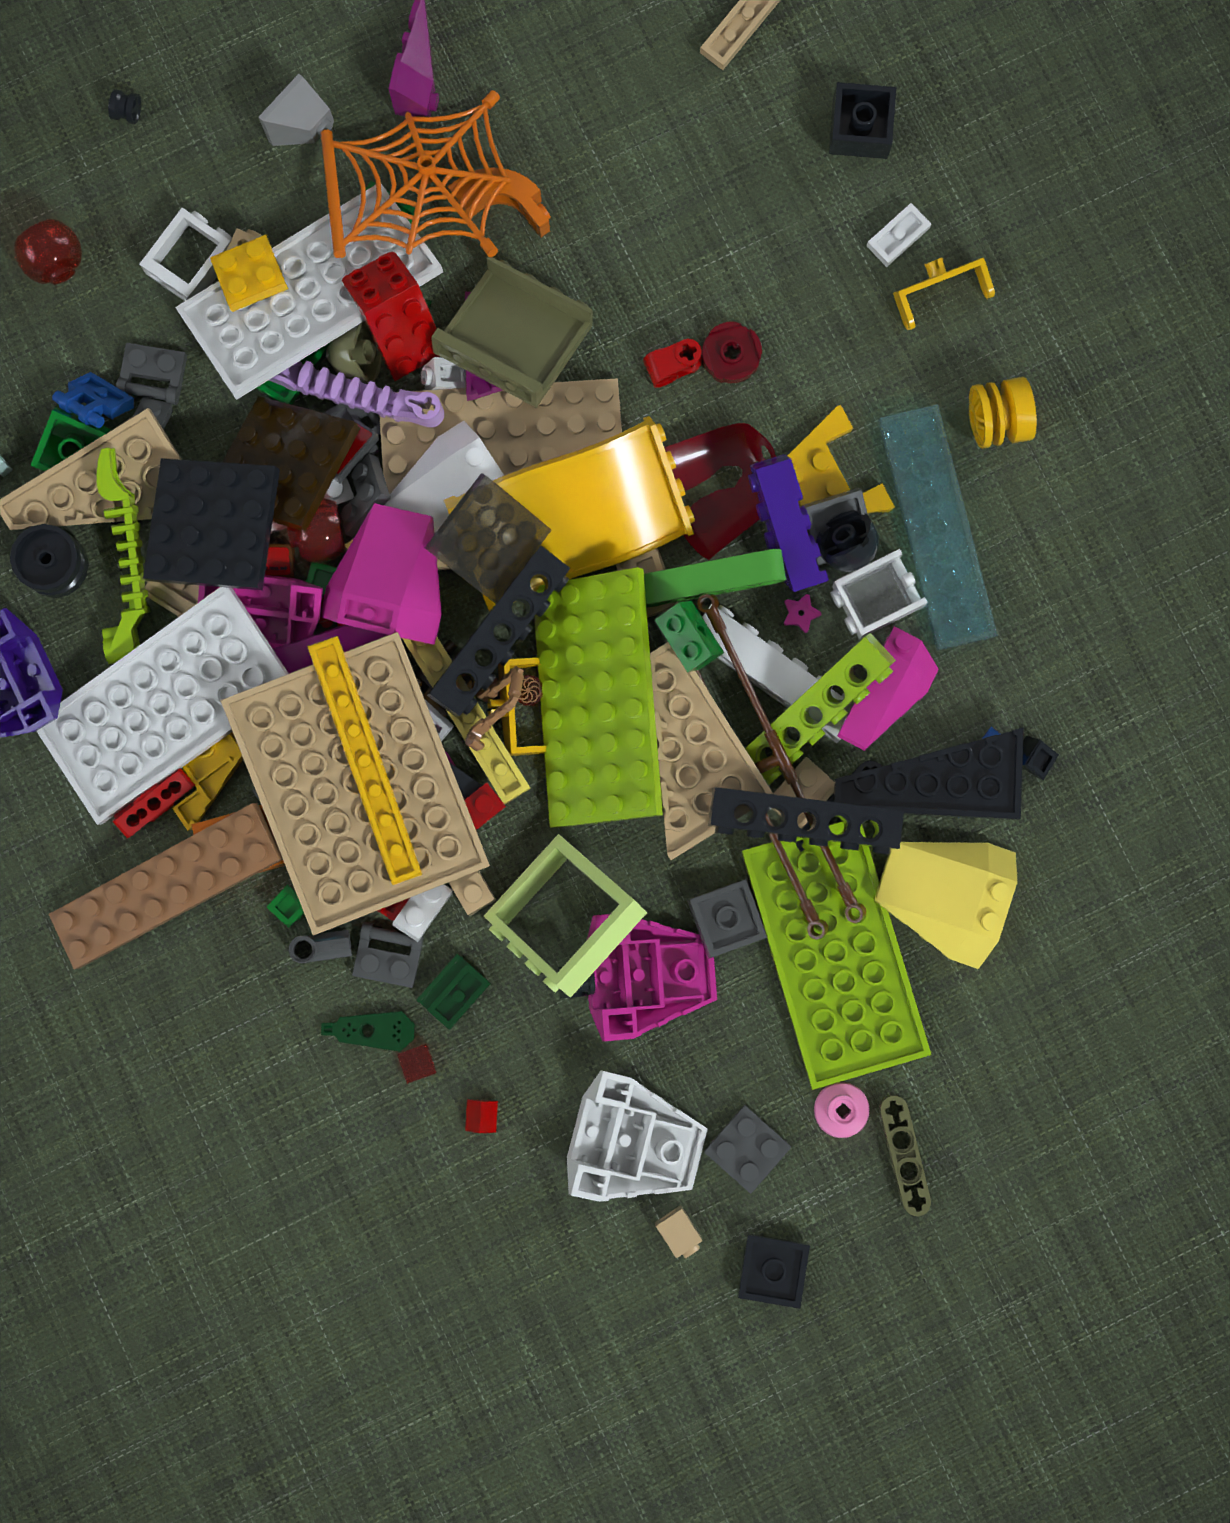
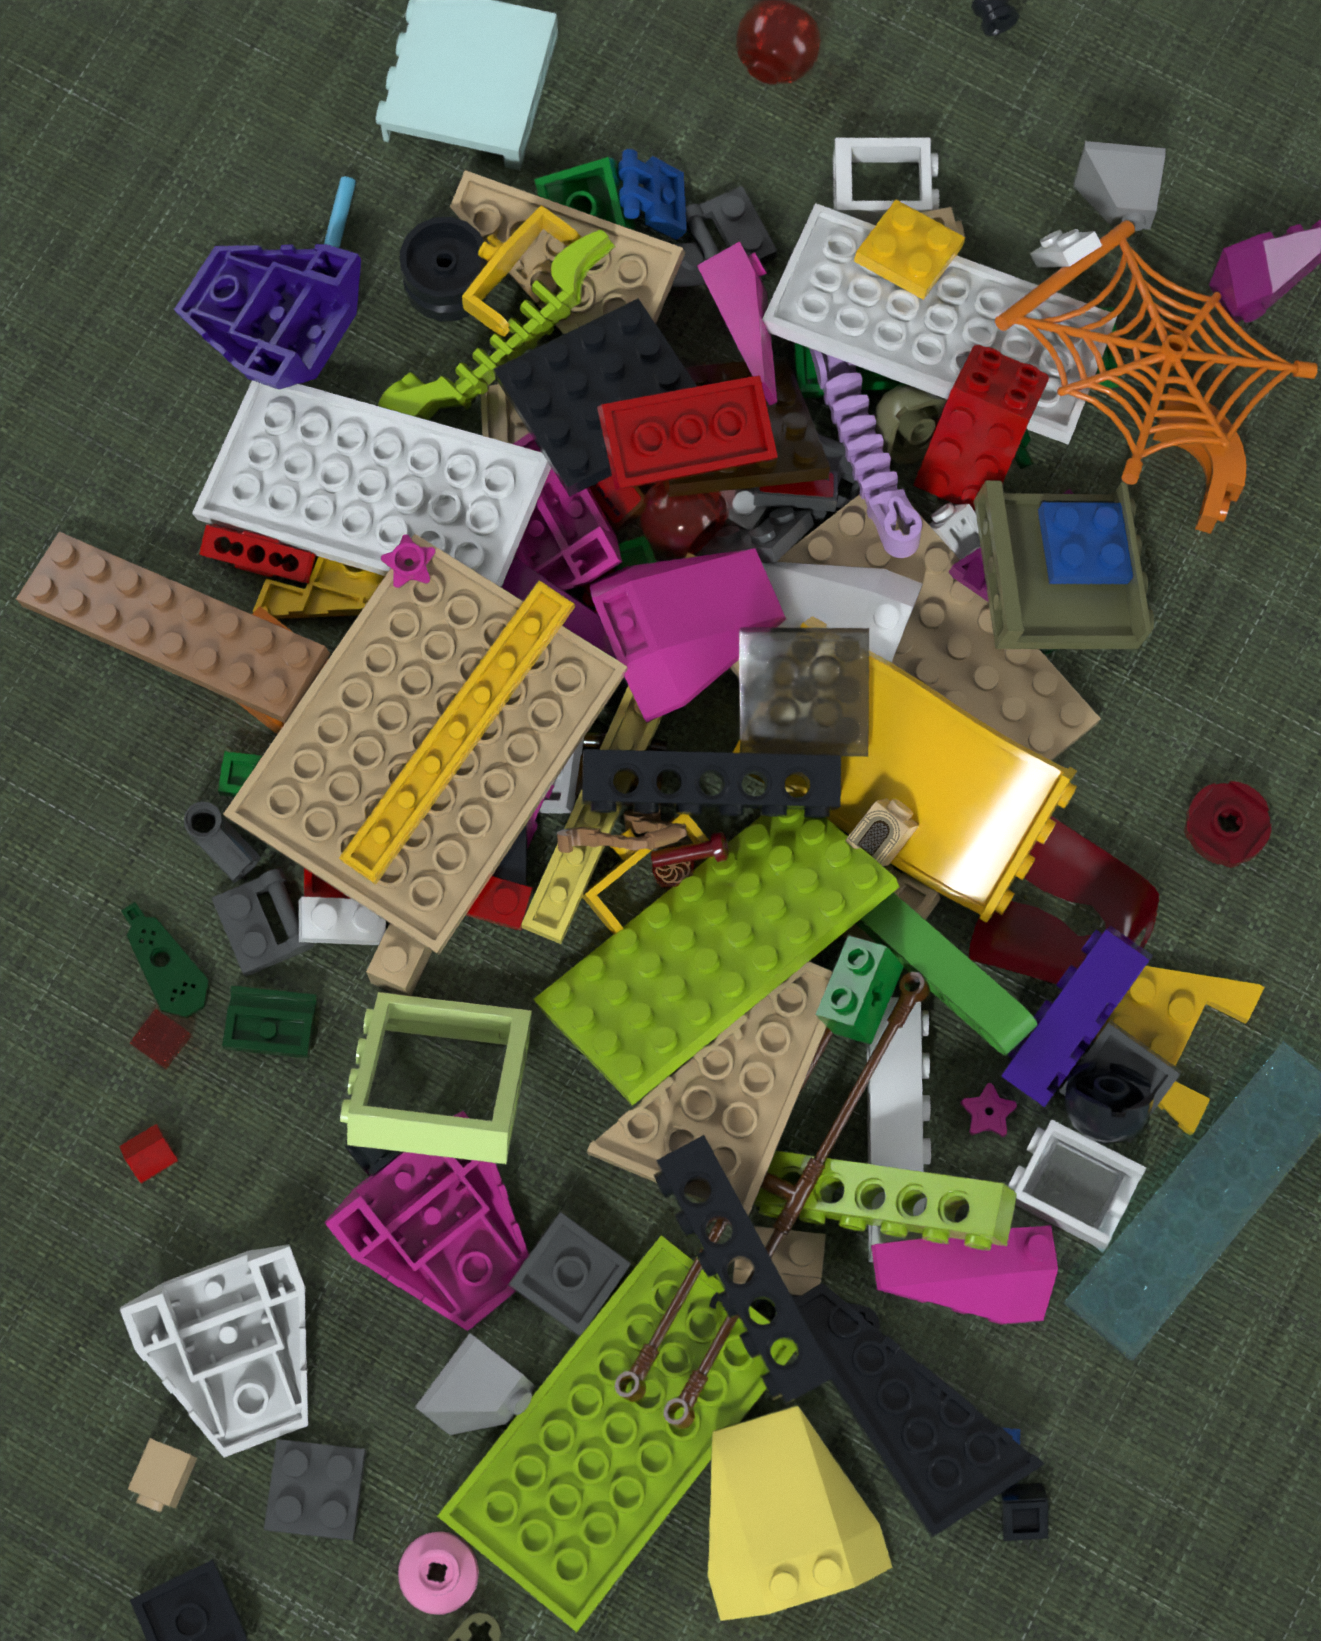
camera: 55 degrees right, 10 degrees down
(71, 520) = (503, 257): none -> yellow piece
(209, 397) = (742, 301): none -> dark pink wedge
(228, 712) = (403, 552): none -> dark pink plate
(277, 491) = (687, 432): none -> red plate
(314, 180) = (1065, 248): none -> white plate
(508, 307) = (1085, 543): none -> blue plate
(532, 668) = (716, 847): none -> dark red piece
(600, 553) = (884, 830): none -> brick
(668, 363) = (1162, 763): red piece -> none
(759, 1018) = (475, 1391): none -> light grey slope

